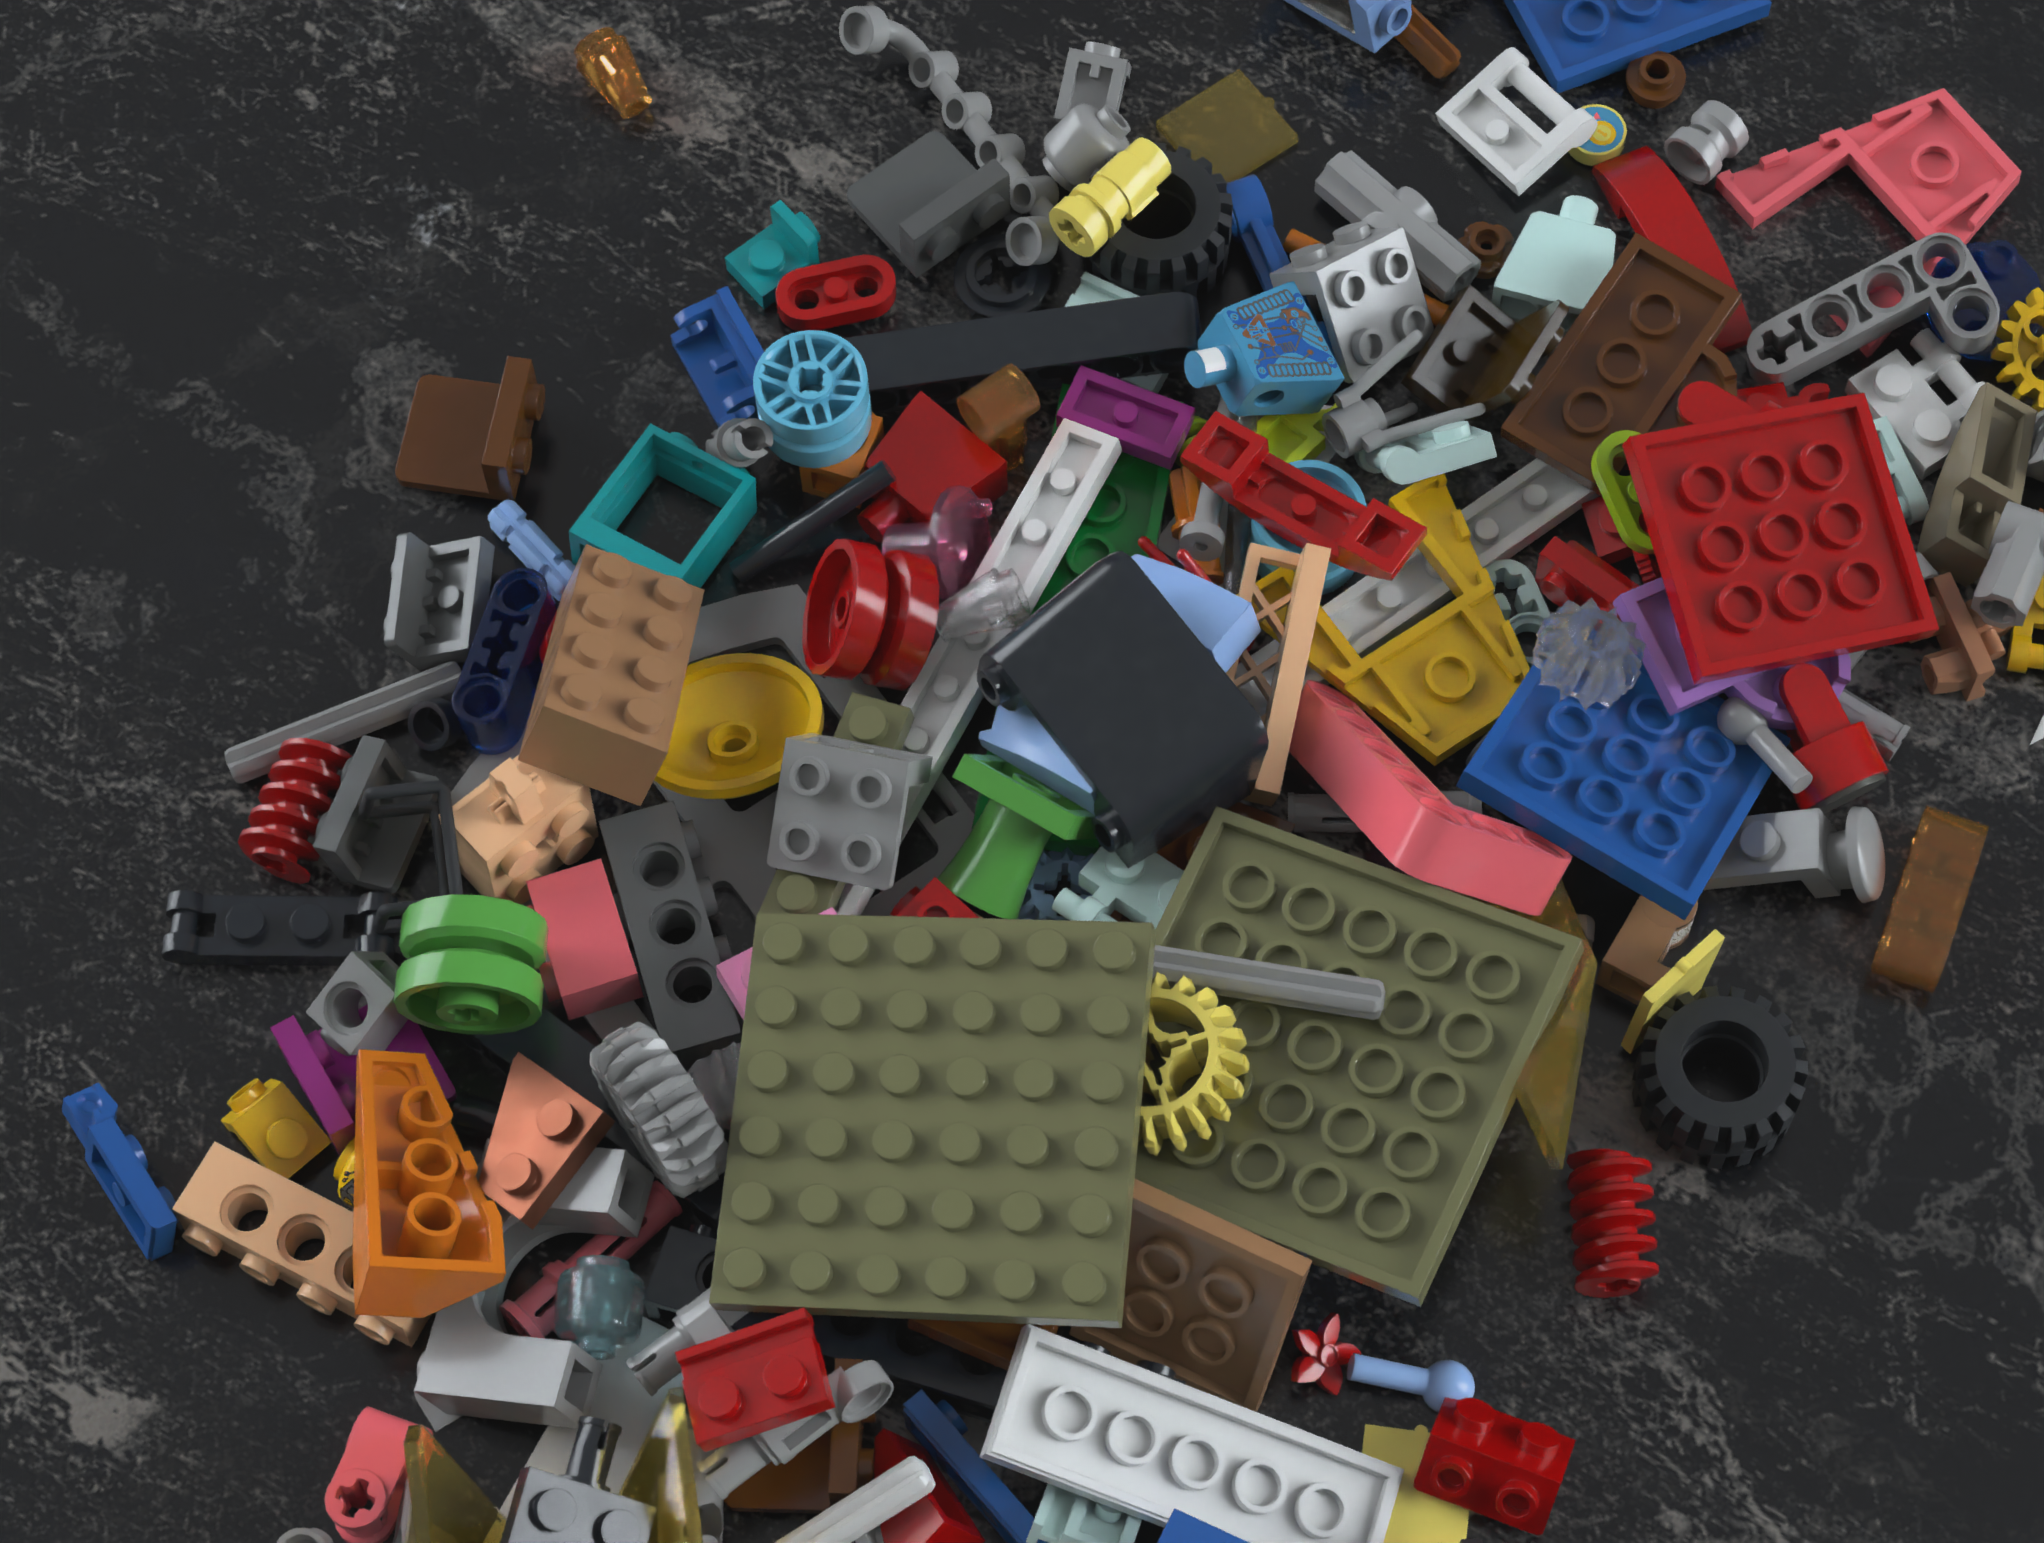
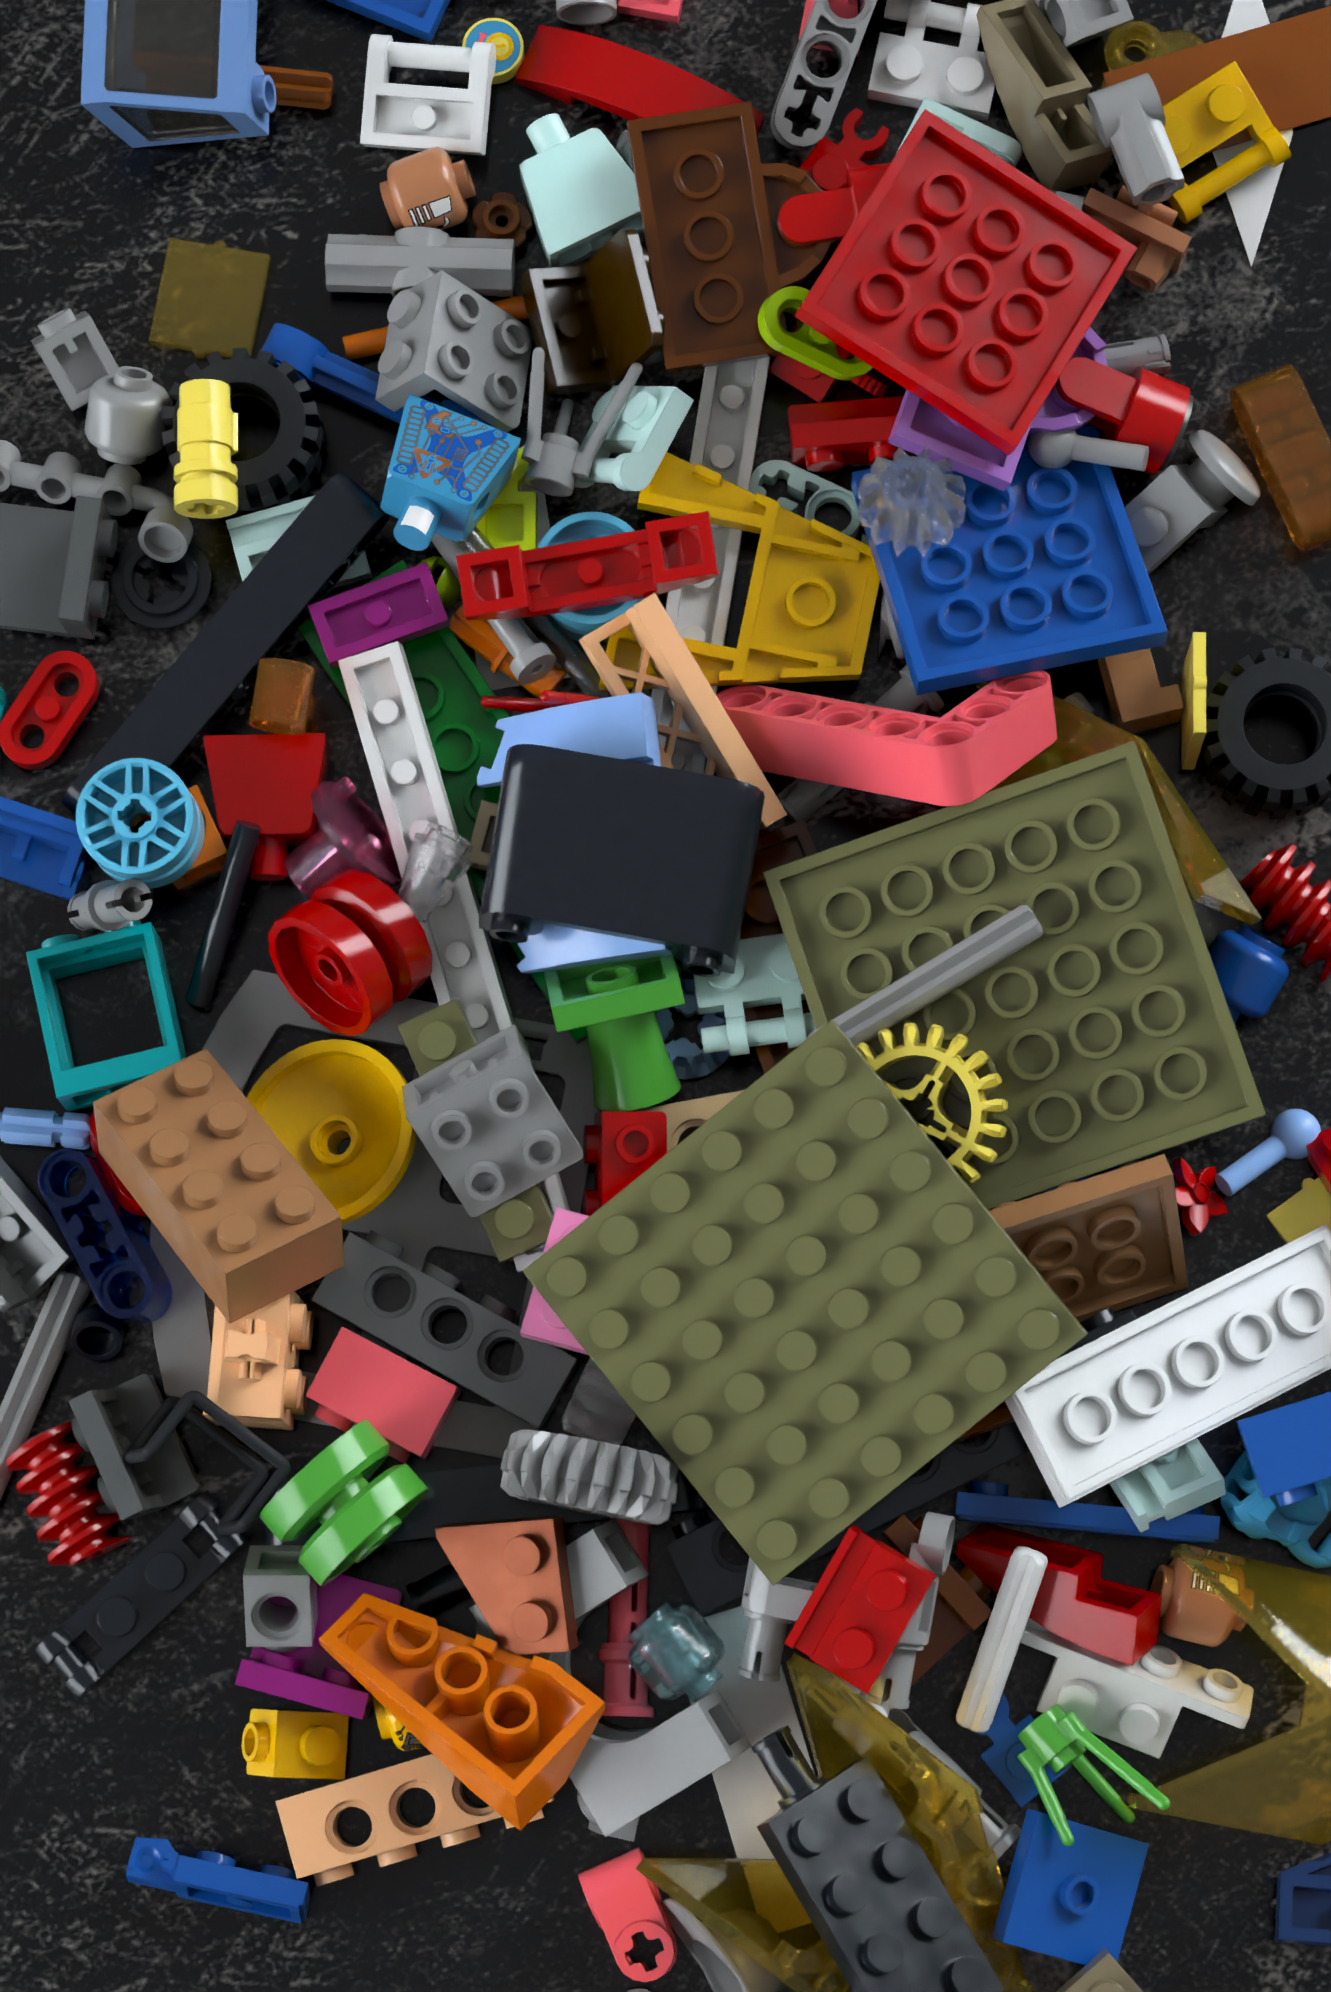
camera: 40 degrees left, 15 degrees up
(1452, 179) = (427, 190): none -> nougat head
(1518, 1225) = (1249, 970): none -> blue head

